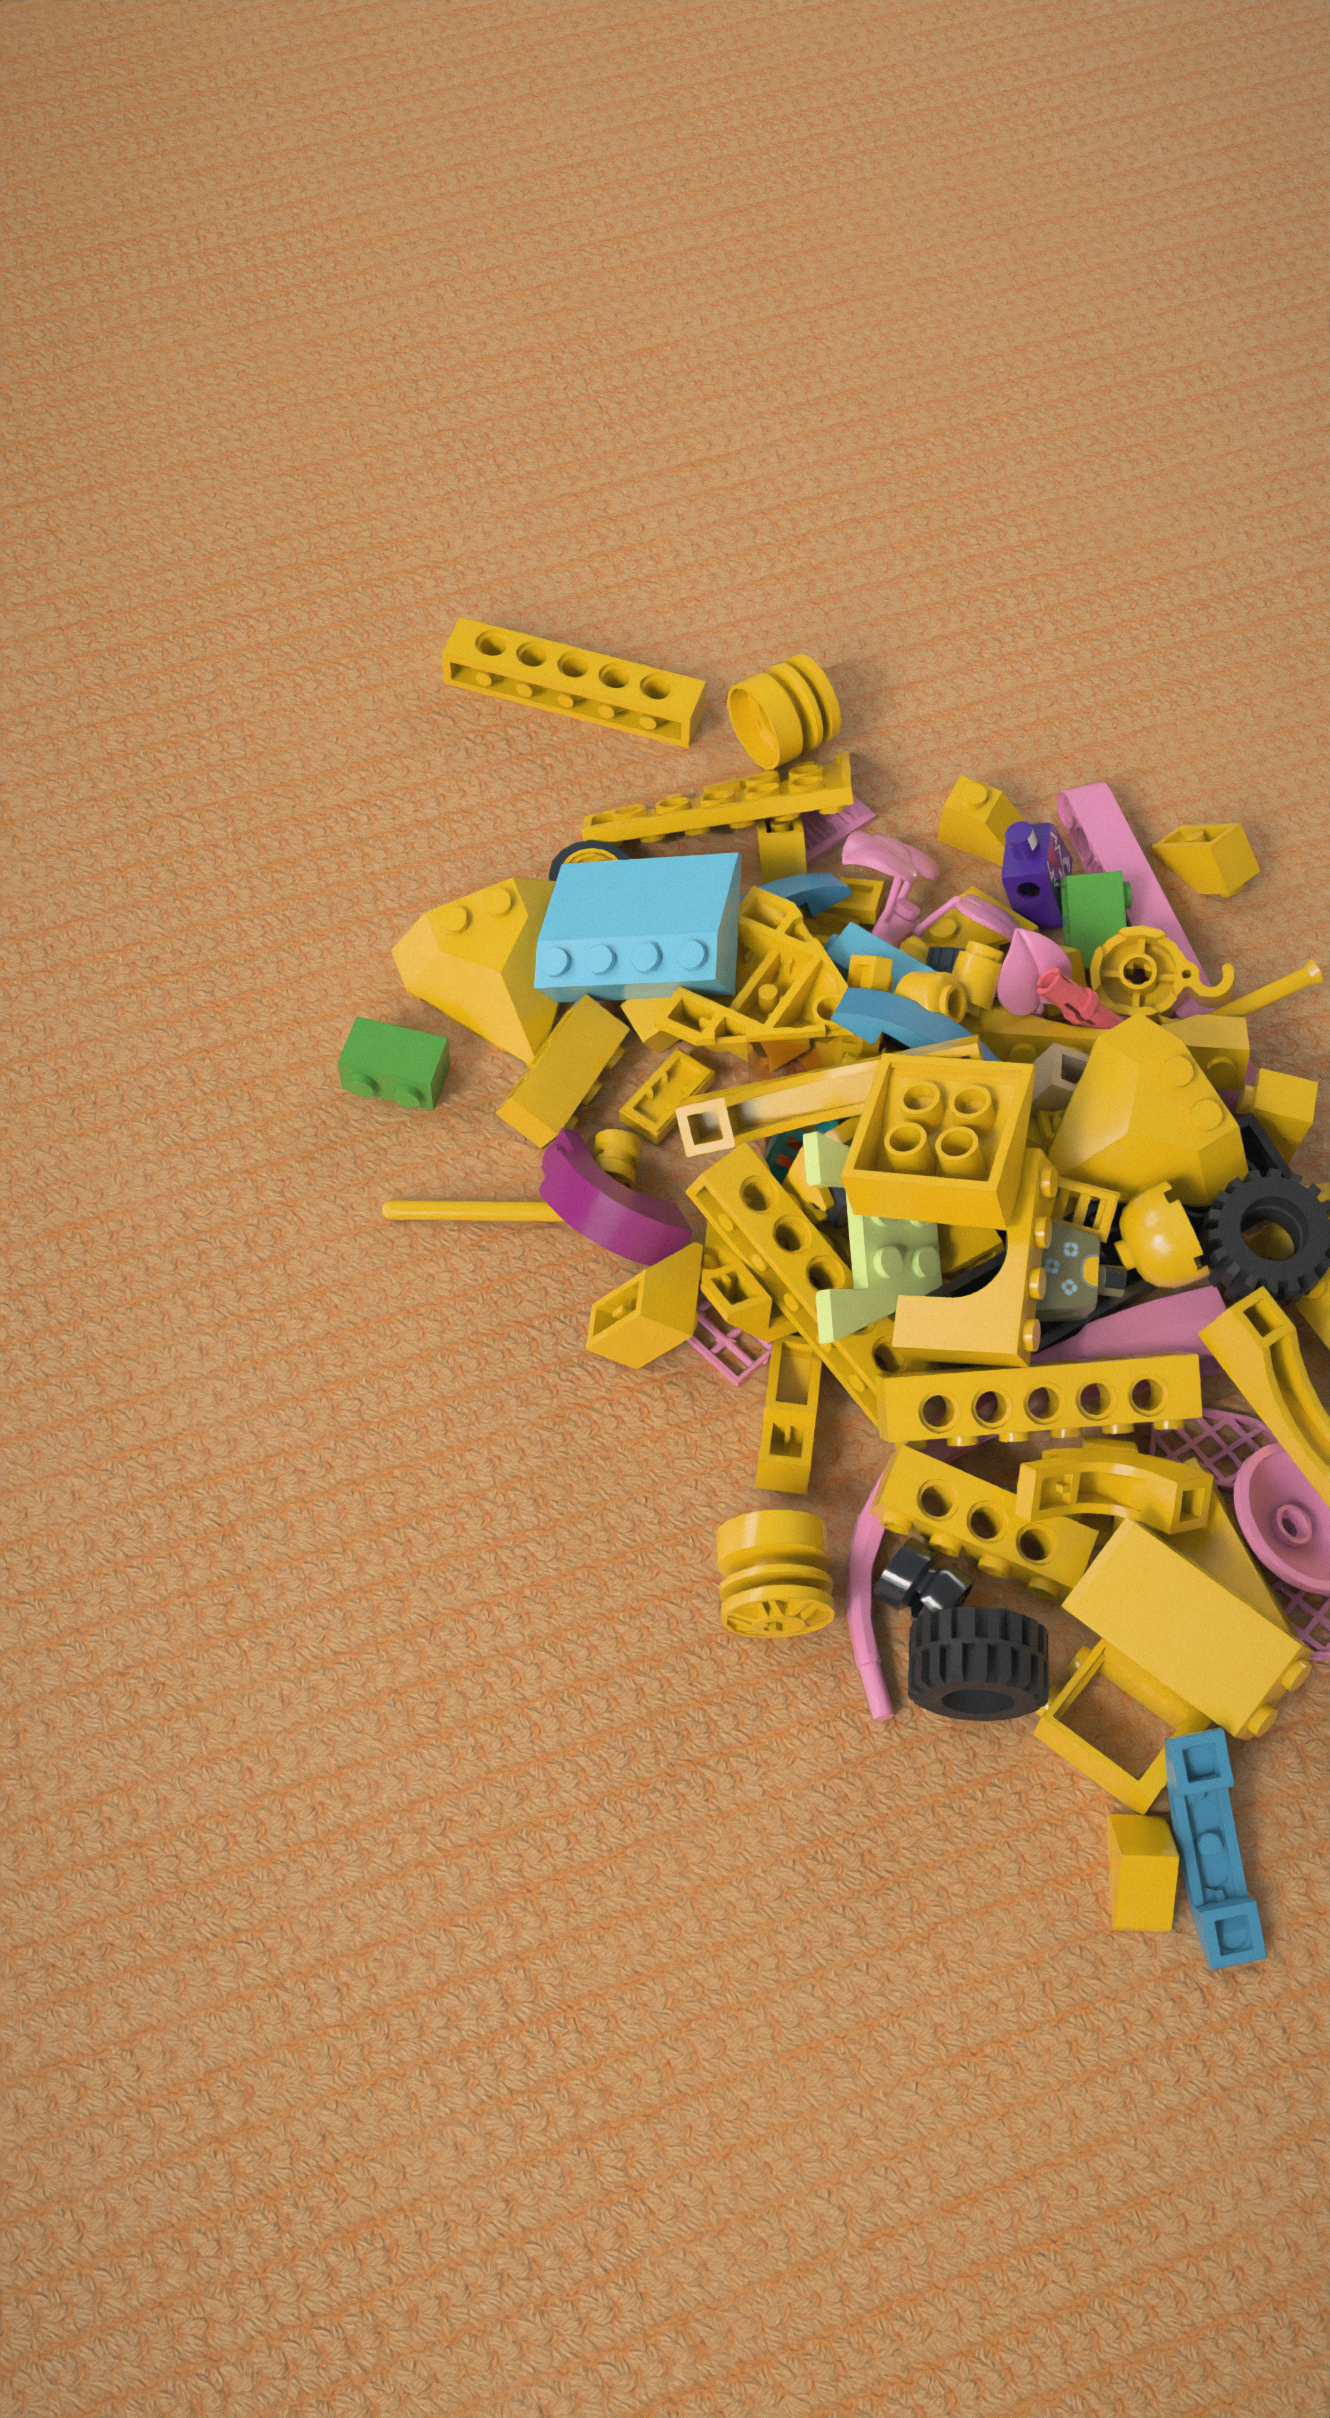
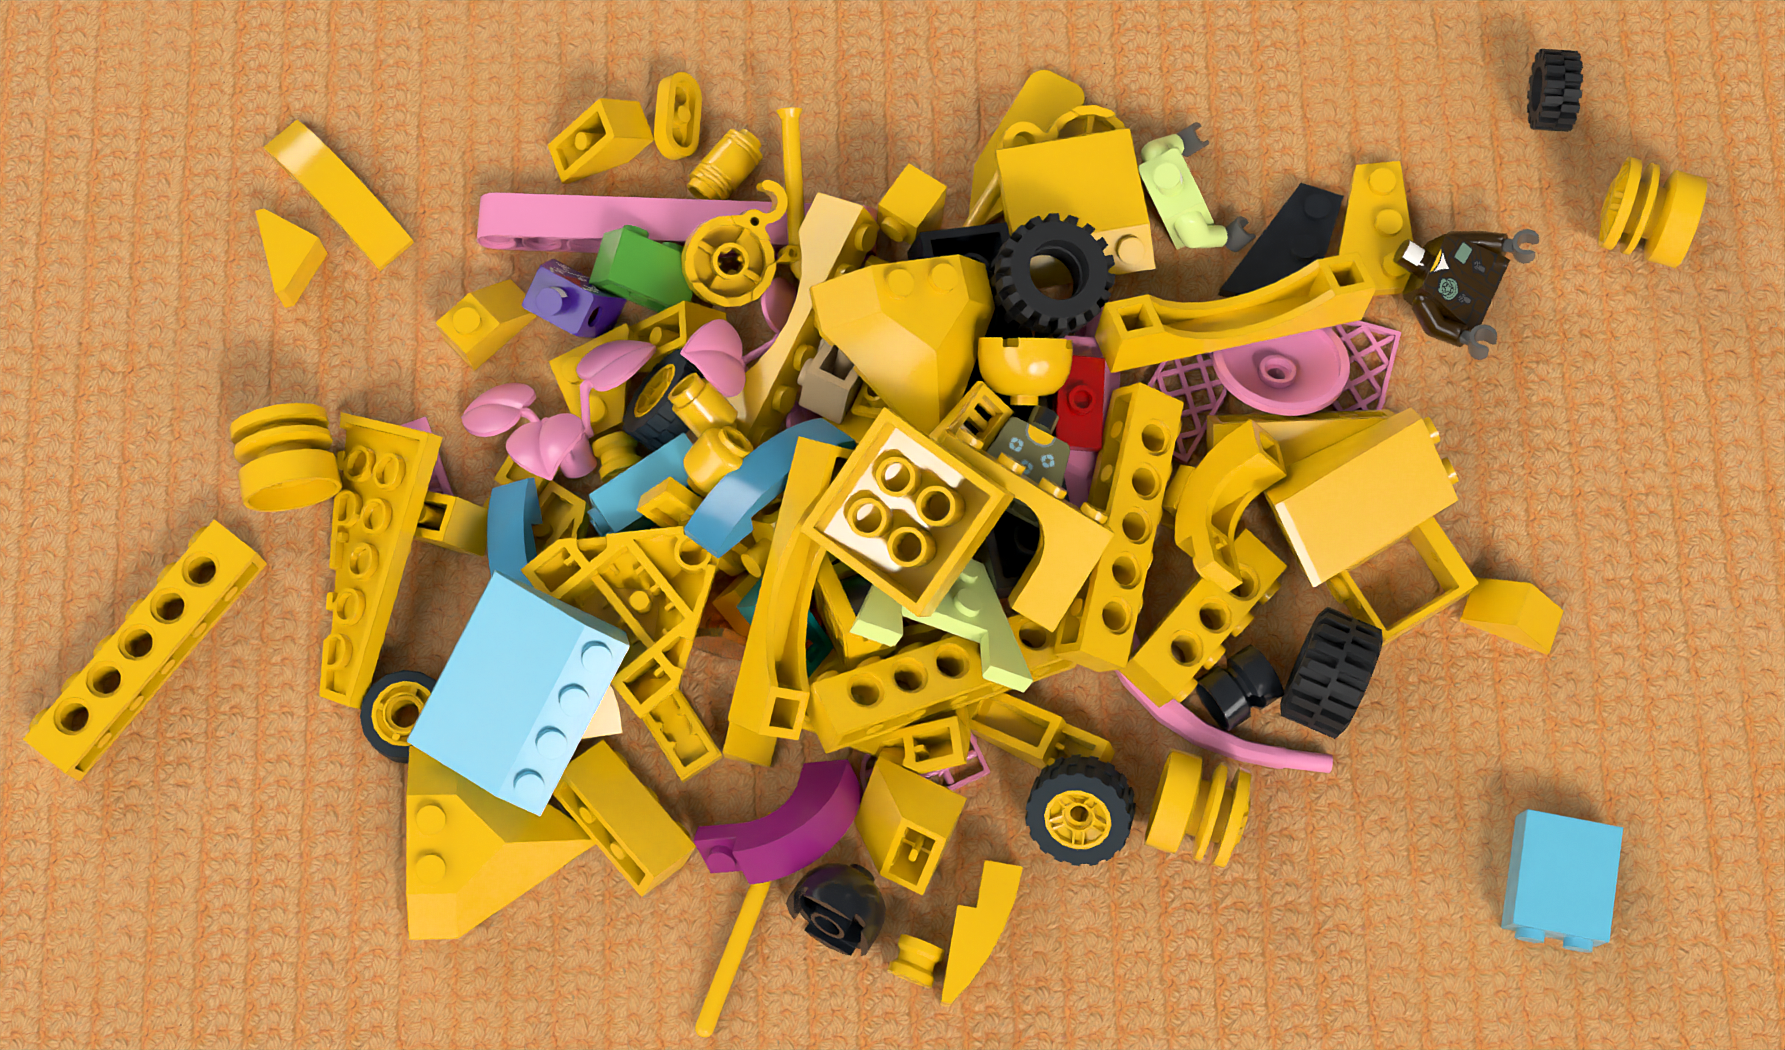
camera: 70 degrees left, 15 degrees up
(394, 1063) = (550, 977): bright green brick -> none
(518, 1366) = (916, 961): none -> yellow wheel
(549, 1277) = (840, 905): none -> black cylinder
(568, 1415) = (979, 928): none -> yellow slope
(617, 1154) = (733, 801): yellow wheel -> none
(676, 1168) = (749, 746): none -> yellow slope
(727, 1461) = (1065, 828): none -> black wheel
(852, 2009) = (1562, 880): none -> medium azure brick
(966, 667) = (290, 254): none -> yellow slope
(1044, 689) = (339, 194): none -> yellow slope
(1078, 1003) = (762, 324): coral pin -> none
(1149, 1318) = (1081, 405): none -> red plate
(1209, 1849) = (1524, 557): dark azure slope -> none
(1252, 963) = (725, 166): none -> yellow head
(1262, 910) = (677, 116): none -> yellow plate

